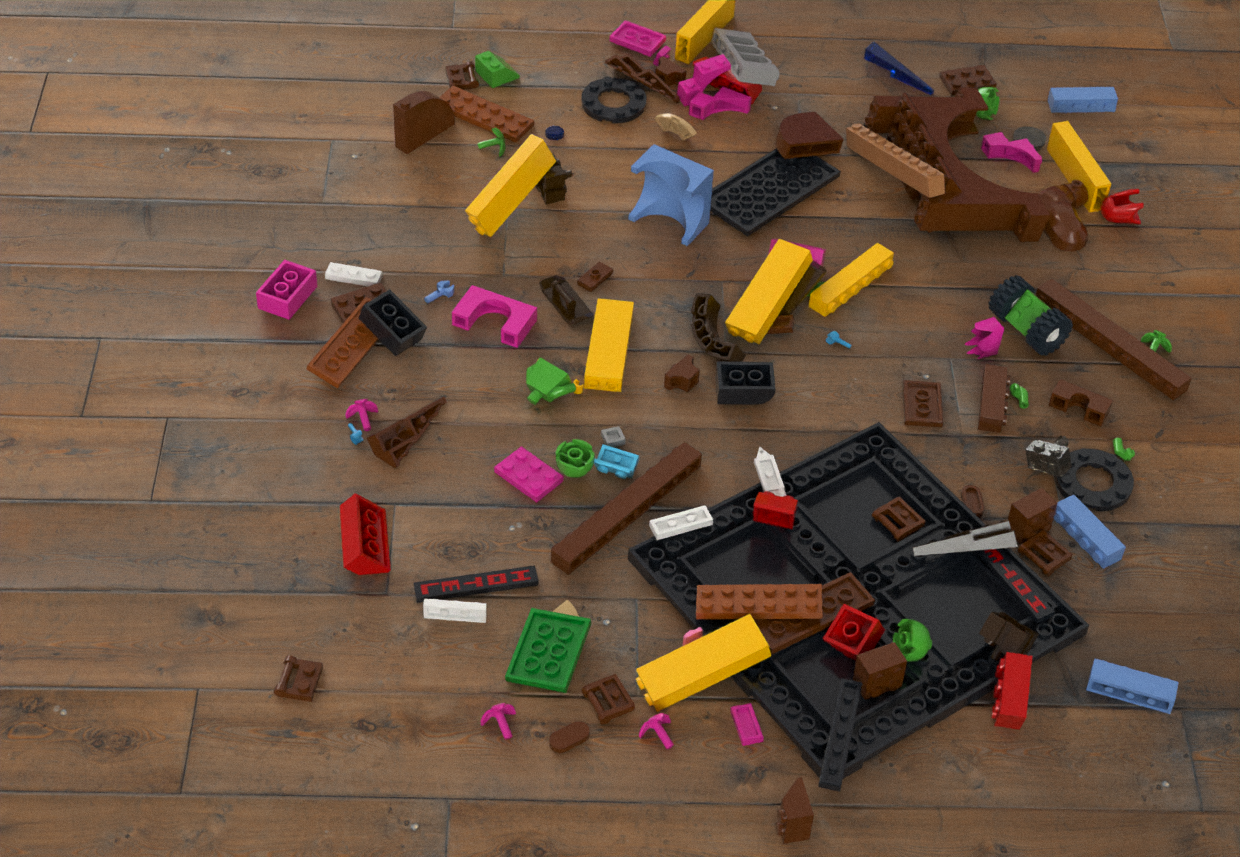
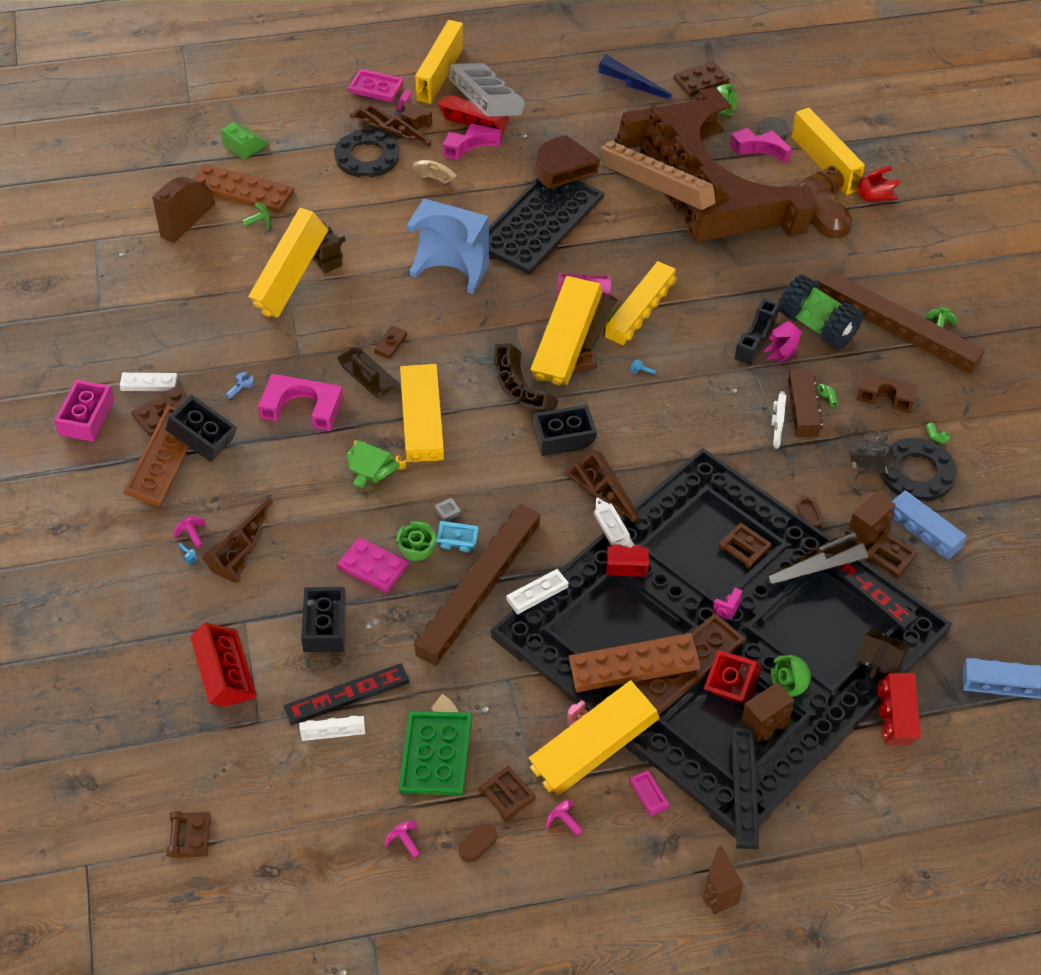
camera: 10 degrees left, 5 degrees up
(456, 76) = (206, 154): reddish brown plate -> none
(469, 513) = (324, 619): none -> black brick
(554, 133) = (316, 197): clear blue piece -> none
(682, 375) = (501, 432): reddish brown brick -> none
(703, 74) = (450, 115): dark pink arch -> none
(768, 433) = (600, 481): none -> reddish brown wedge
(867, 569) = (729, 607): none -> dark pink bracket
(922, 403) = (738, 420): reddish brown tile -> none
(952, 335) = (750, 343): none -> black arch
(963, 408) = (778, 419): none -> white plate
(1082, 99) = (813, 82): medium blue brick -> none

